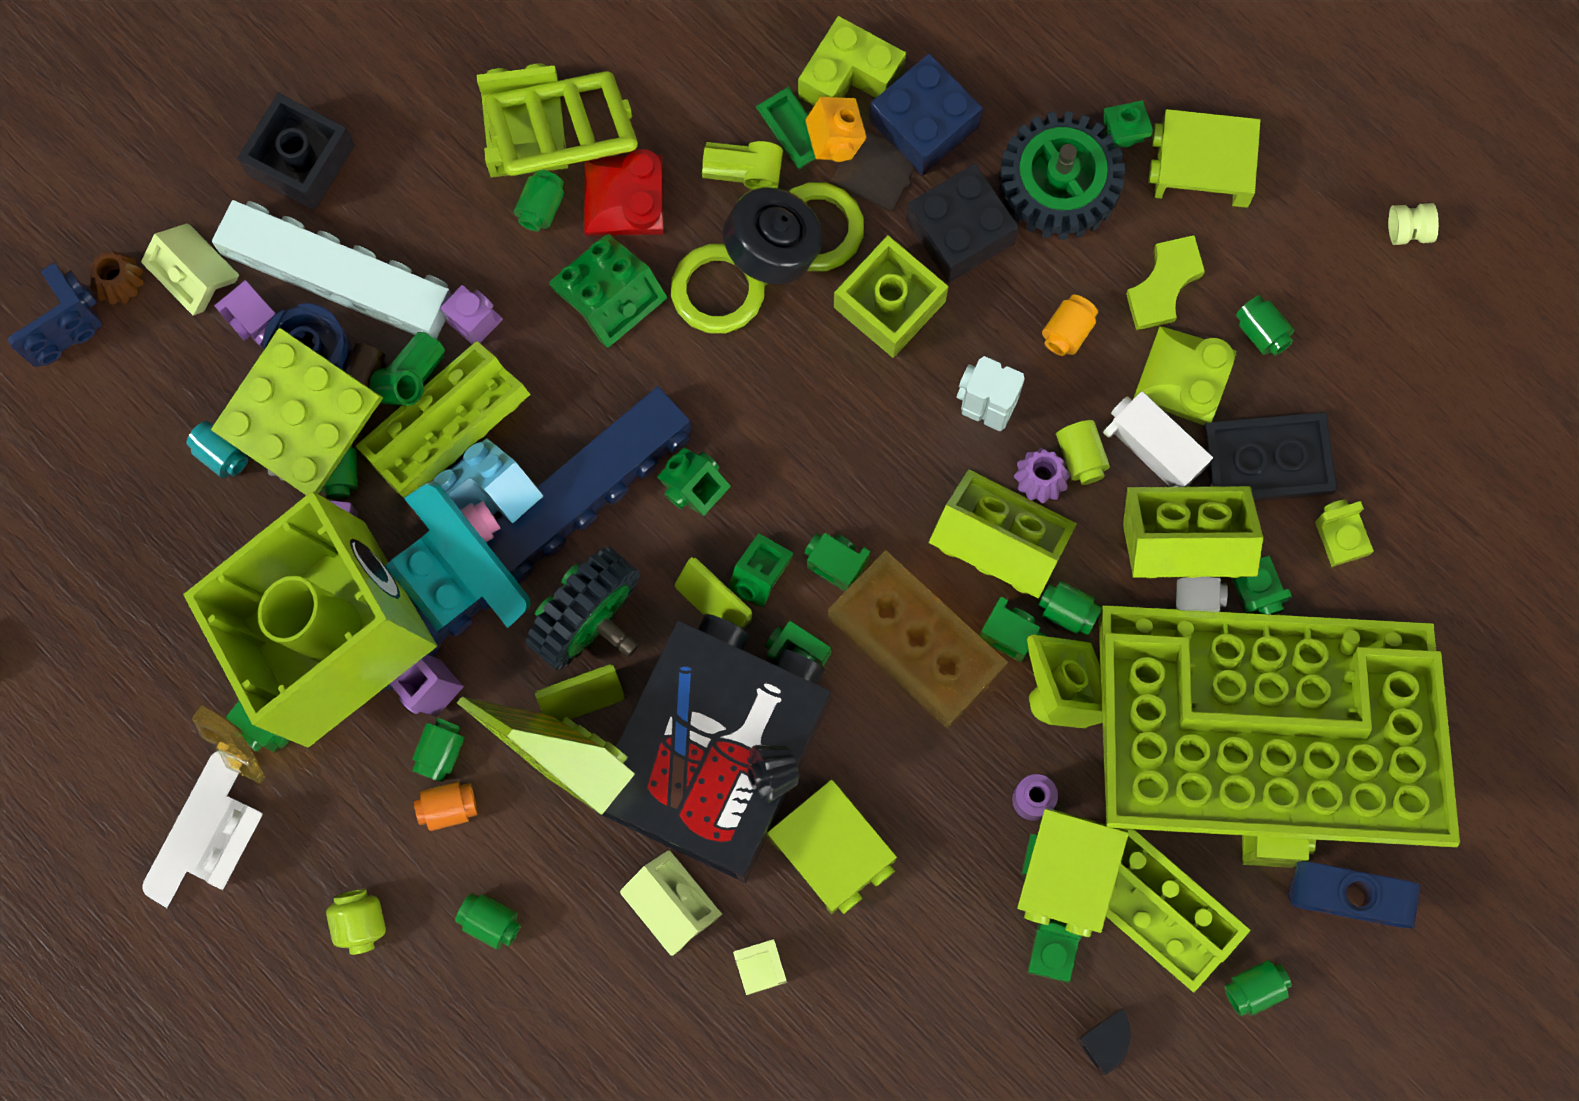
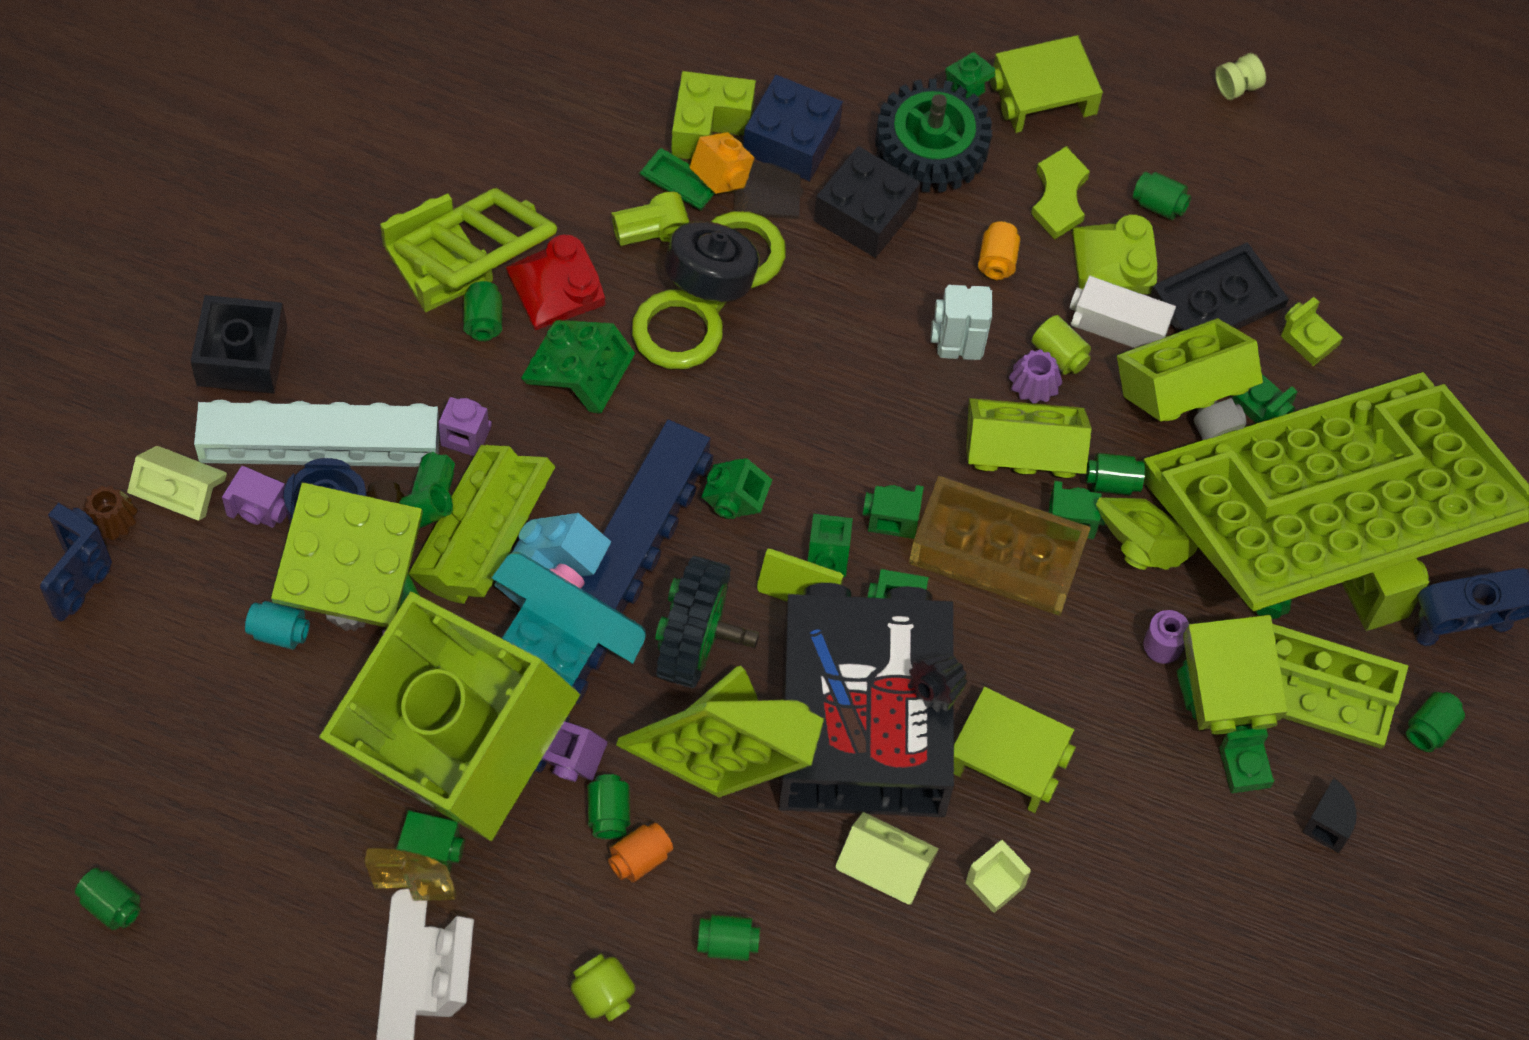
camera: 30 degrees left, 15 degrees down
(890, 296) = (836, 278): lime brick -> none

